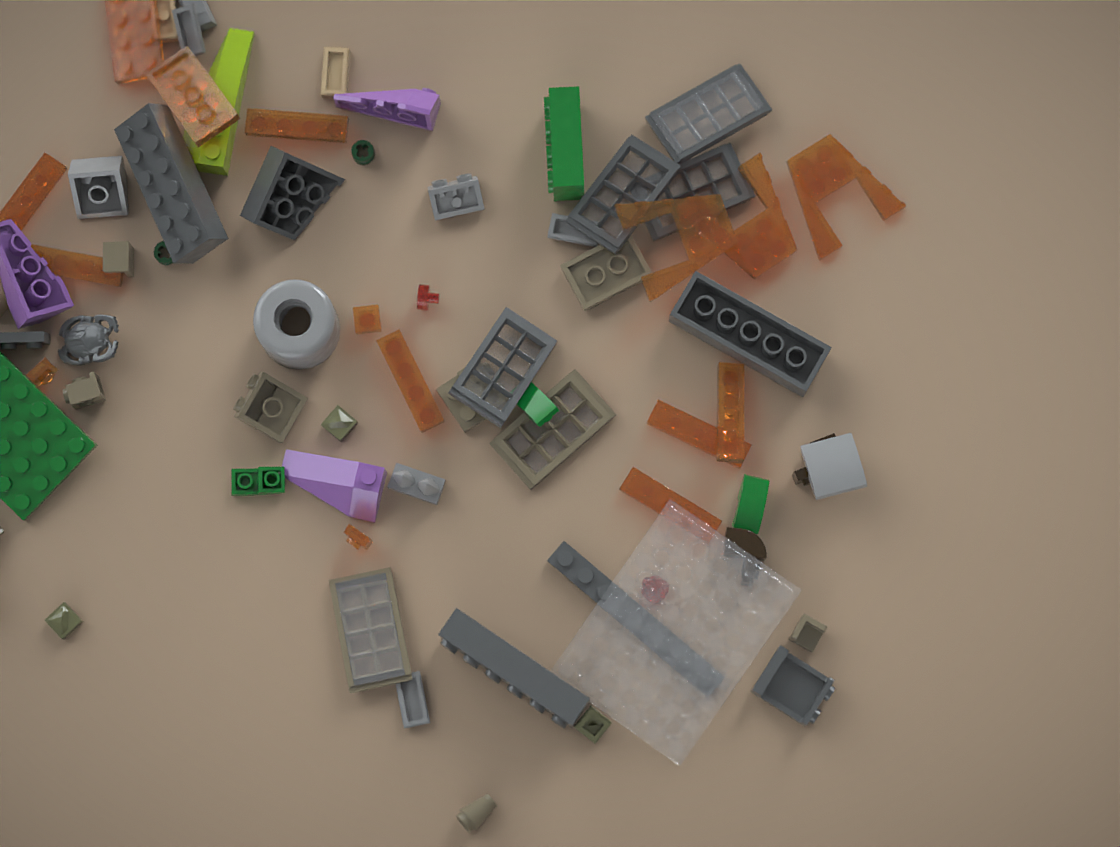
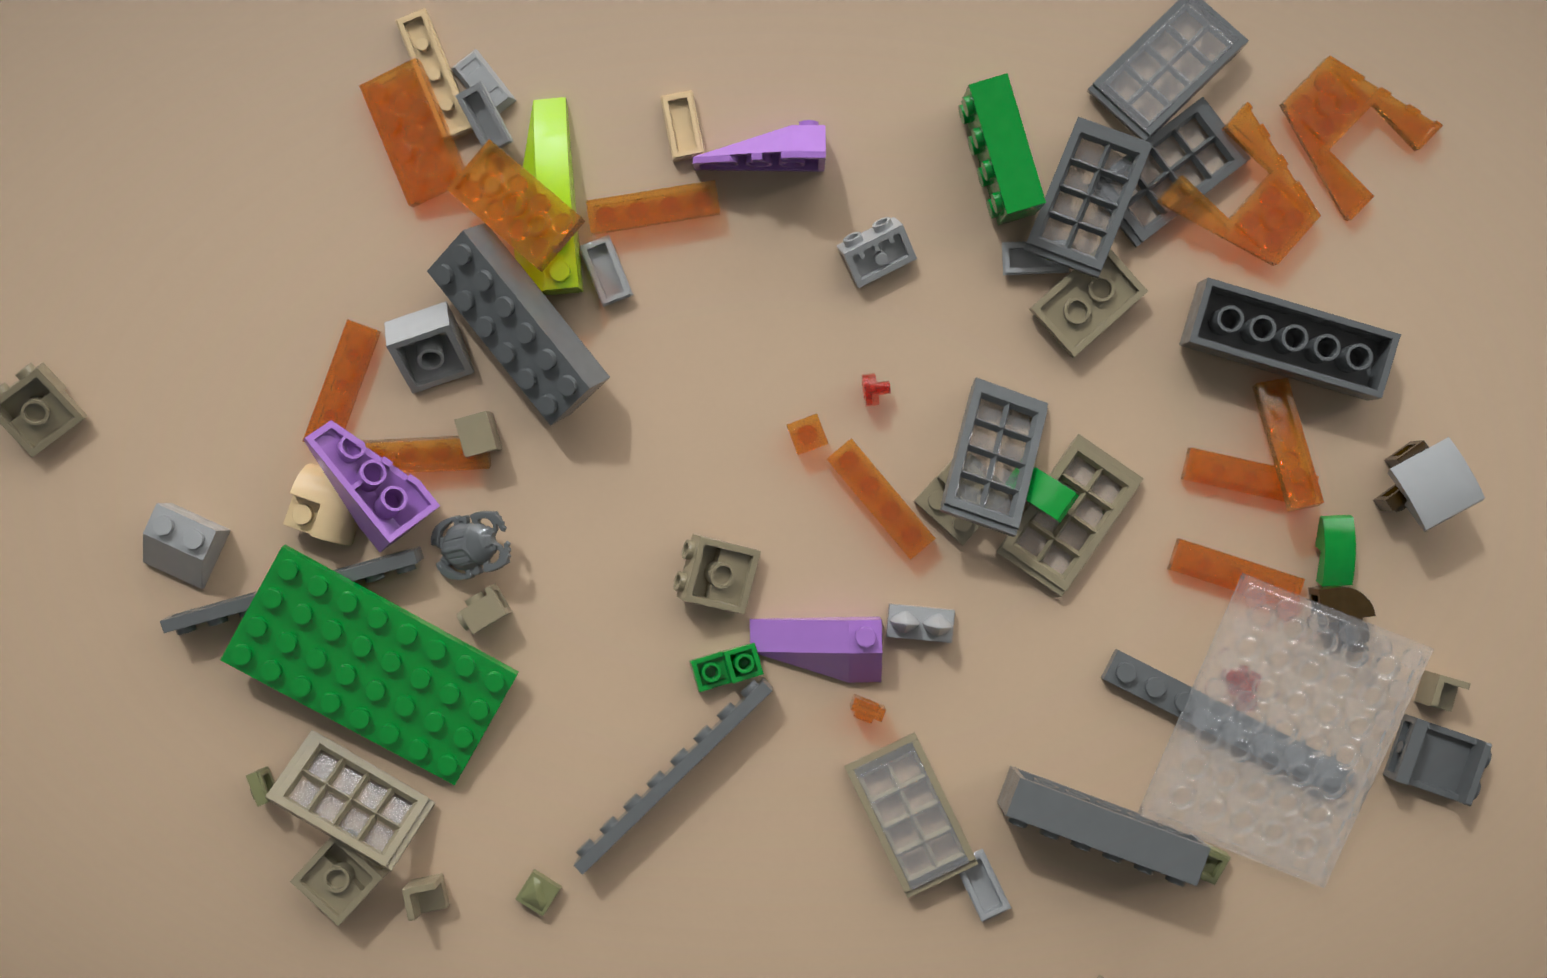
camera: 15 degrees left, 10 degrees up
(42, 372) = (426, 599): clear orange plate -> none
(164, 261) = (536, 420): dark green bush -> none
(183, 557) = (662, 783): none -> dark grey plate
(247, 161) = (605, 270): none -> light grey tile
(287, 193) = (666, 299): dark grey wedge -> none
(302, 350) = (690, 456): light grey piece -> none
(339, 423) = (806, 571): olive tile -> none
(362, 144) = (735, 224): dark green bush -> none
(701, 227) = (1202, 221): clear orange wing -> none

